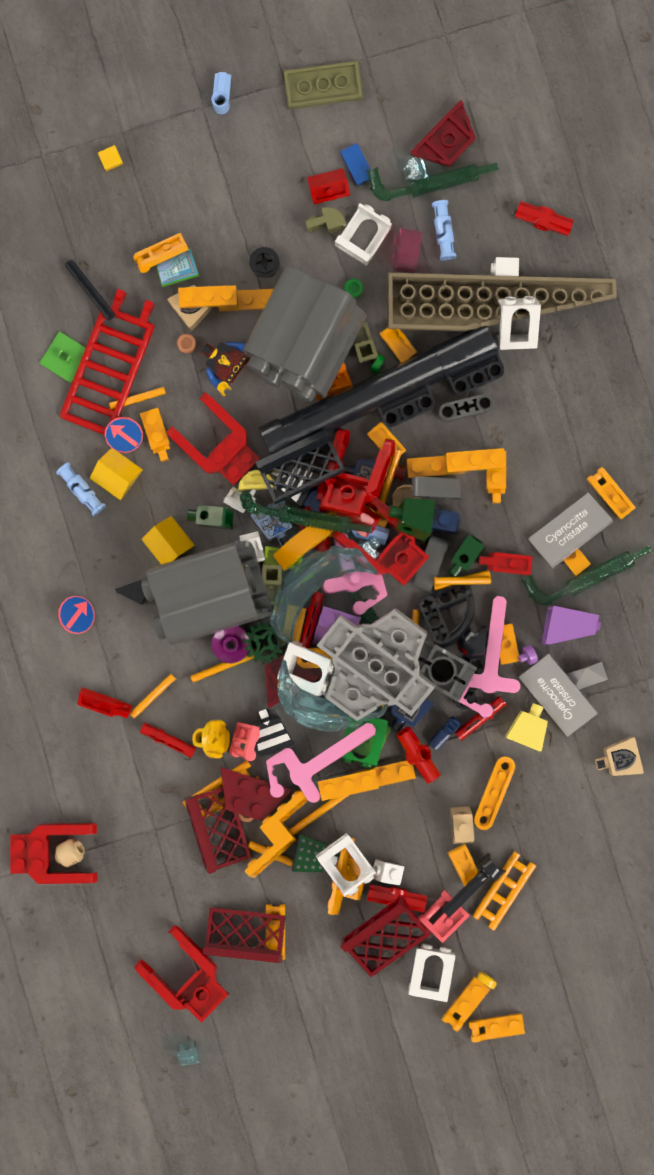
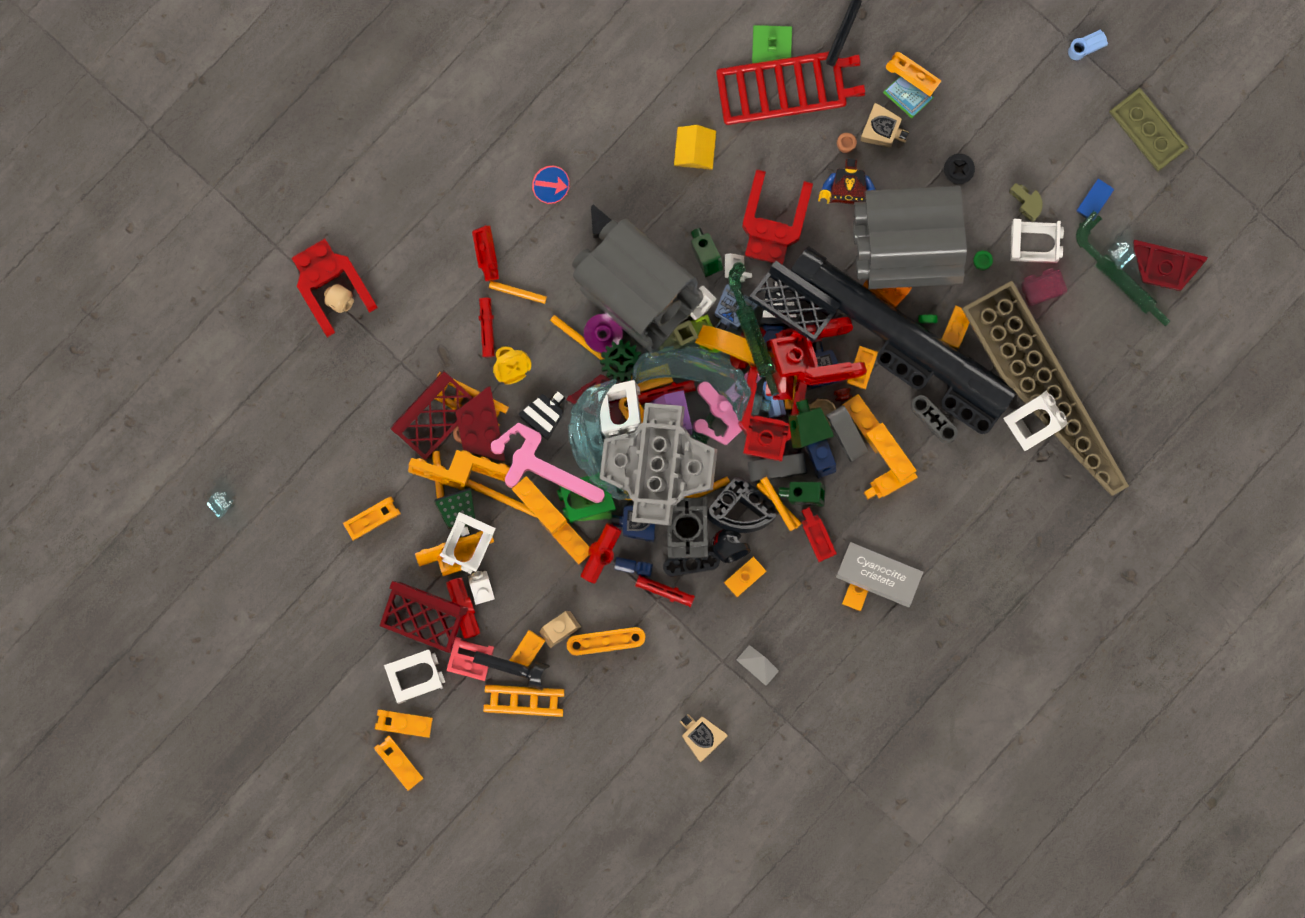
camera: 60 degrees right, 5 degrees down
(82, 491) = (662, 128): light blue piece -> none
(123, 434) = (733, 134): blue piece -> none
(140, 397) = (775, 130): light orange bar -> none
(156, 433) = (751, 161): light orange hinge -> none
(167, 541) = (663, 226): yellow slope -> none
(200, 993) = (280, 481): red plate -> none
(224, 297) = (905, 150): light orange bracket -> none
(244, 734) = (531, 392): coral plate -> none
(244, 952) = (338, 500): dark red fence -> none
(253, 480) = (759, 270): light yellow tile -> none
(328, 186) = (1060, 185): red panel -> none
(364, 345) = (937, 297): olive brick -> none
(390, 475) = (833, 387): light orange bar -> none
(444, 230) = (1079, 311): light blue piece -> none
(487, 980) = (435, 730): yellow tile -> none
(489, 680) = (704, 578): bright pink piece -> none
(505, 267) = (1080, 382): white brick -> none
(529, 655) = (746, 601): medium lavender tile -> none
(529, 728) = (681, 639): light yellow torso -> none
(544, 218) = (1145, 392): red piece -> none
(558, 694) = (726, 648): light grey tile -> none
(568, 624) = (793, 619): medium lavender slope -> none
(585, 580) = (842, 614): clear green piece -> none
(611, 493) = (934, 593): light orange plate -> none

